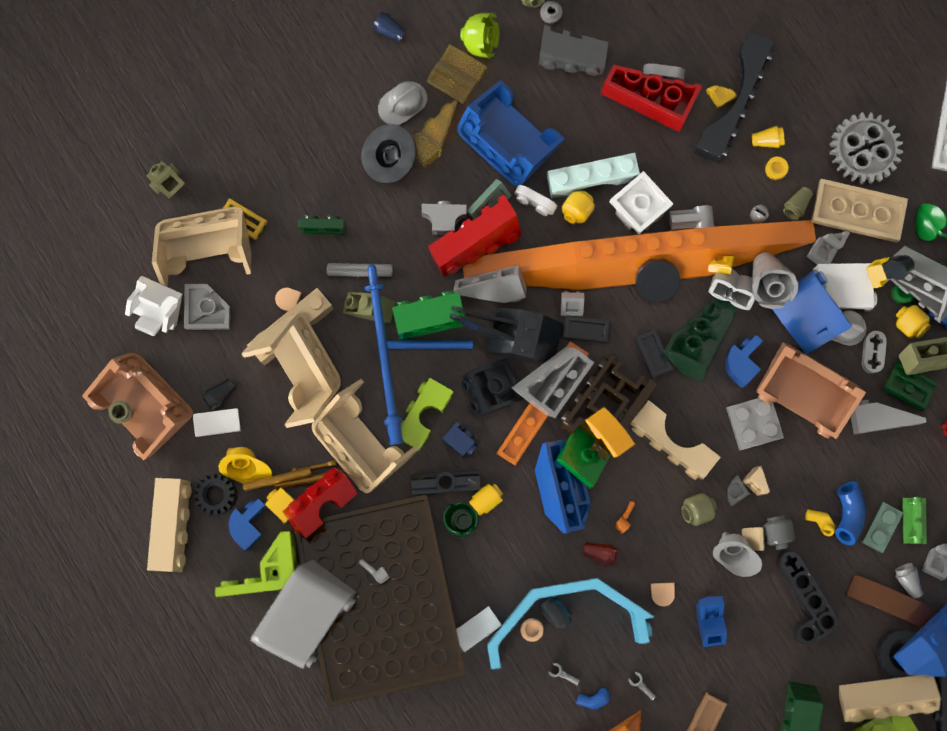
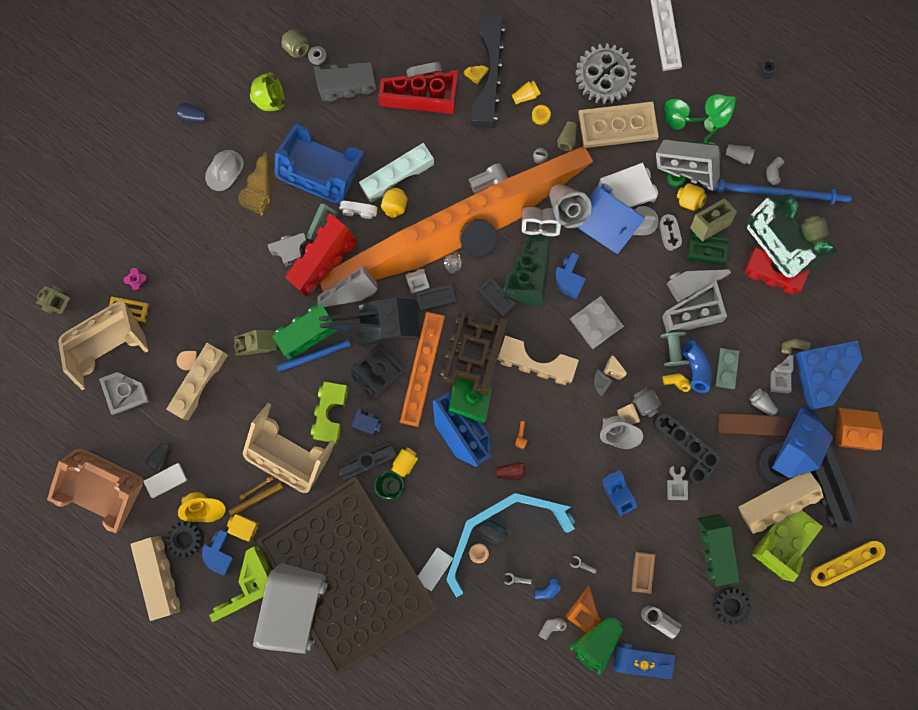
camera: 15 degrees left, 0 degrees up
(116, 409) = (79, 501): olive cone -> none
(156, 306) = (81, 403): white panel -> none
(262, 194) = (141, 278): none -> dark pink plate
(277, 479) = (230, 508): pearl gold bar -> none
(304, 511) = (260, 526): red arch -> none
(305, 364) = (216, 405): tan windscreen -> none
(313, 226) = (200, 289): dark green plate -> none
(358, 270) = (237, 316): light grey axle -> none
(380, 575) = (340, 555): light grey hand -> none
(389, 153) = (227, 214): black hat -> none
(393, 420) = (305, 425): blue bar -> none
(456, 74) = (259, 131): clear yellow slope -> none
(554, 381) = (424, 347): light grey wedge -> none
(610, 430) = (483, 371): light orange slope -> none
(619, 297) = (453, 262): none -> clear plate
(640, 203) = (443, 181): white panel -> none
(662, 593) = (573, 485): light nougat tile -> none
(698, 509) = (577, 407): olive head -> none
(722, 266) = (526, 207): yellow tile -> none
(778, 639) = (677, 488): none -> light grey plate
(810, 390) = (630, 281): nougat windscreen -> none
(826, 247) = (602, 163): light grey slope -> none
(832, 484) = (674, 348): none -> sand green piece
(871, 451) = (696, 311): none -> light grey wedge
(887, 268) = (657, 161): leg -> none
(914, 520) = (750, 353): bright green hinge -> none

